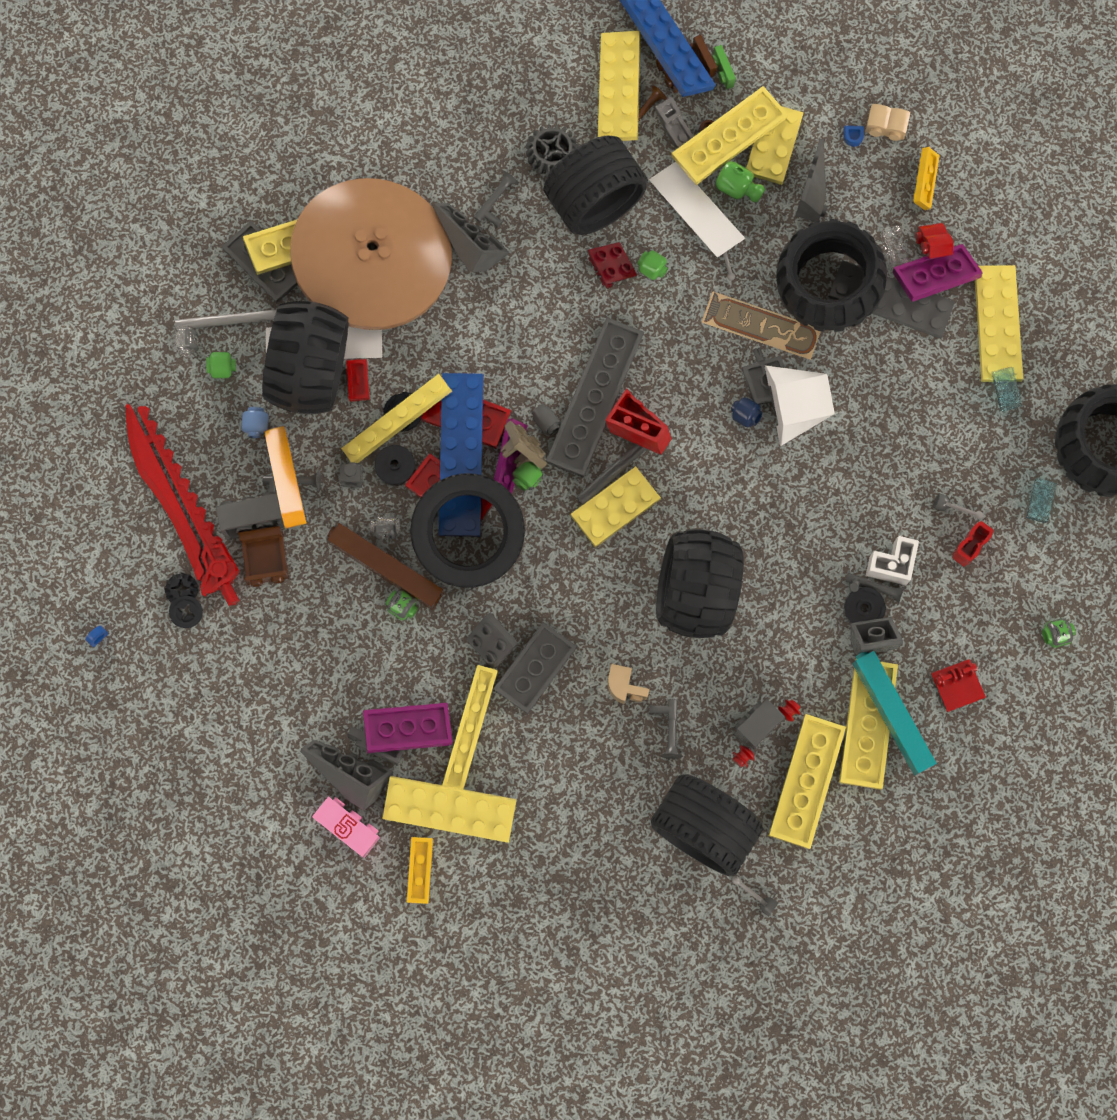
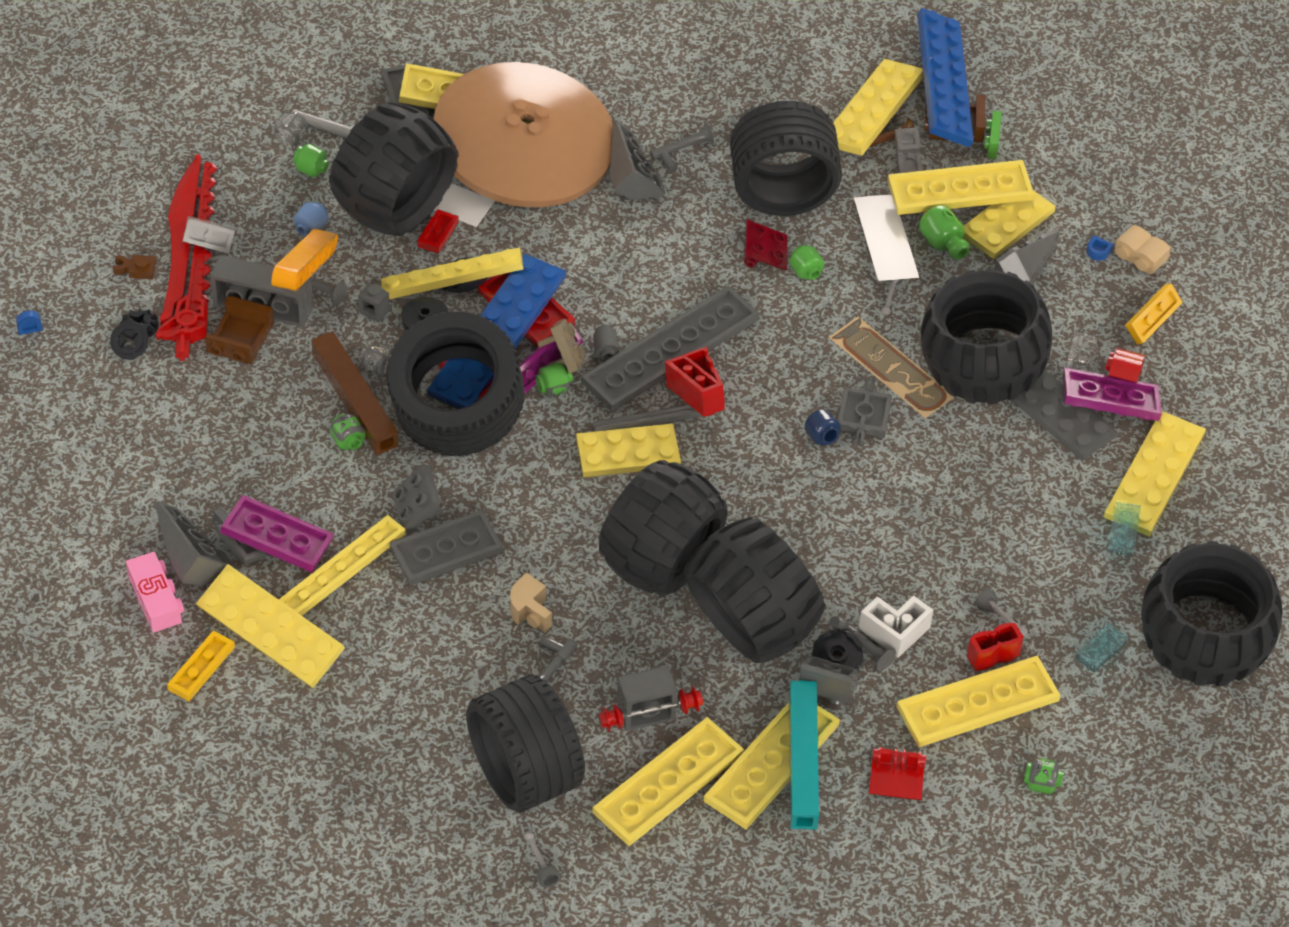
camera: 30 degrees right, 25 degrees down
(147, 535) = (138, 267): none -> reddish brown plate
(186, 480) = (208, 234): none -> light grey hinge
(796, 604) = (754, 589): none -> black tyre
(799, 400) = (886, 440): white wedge -> none
(981, 594) = (978, 701): none -> light yellow plate

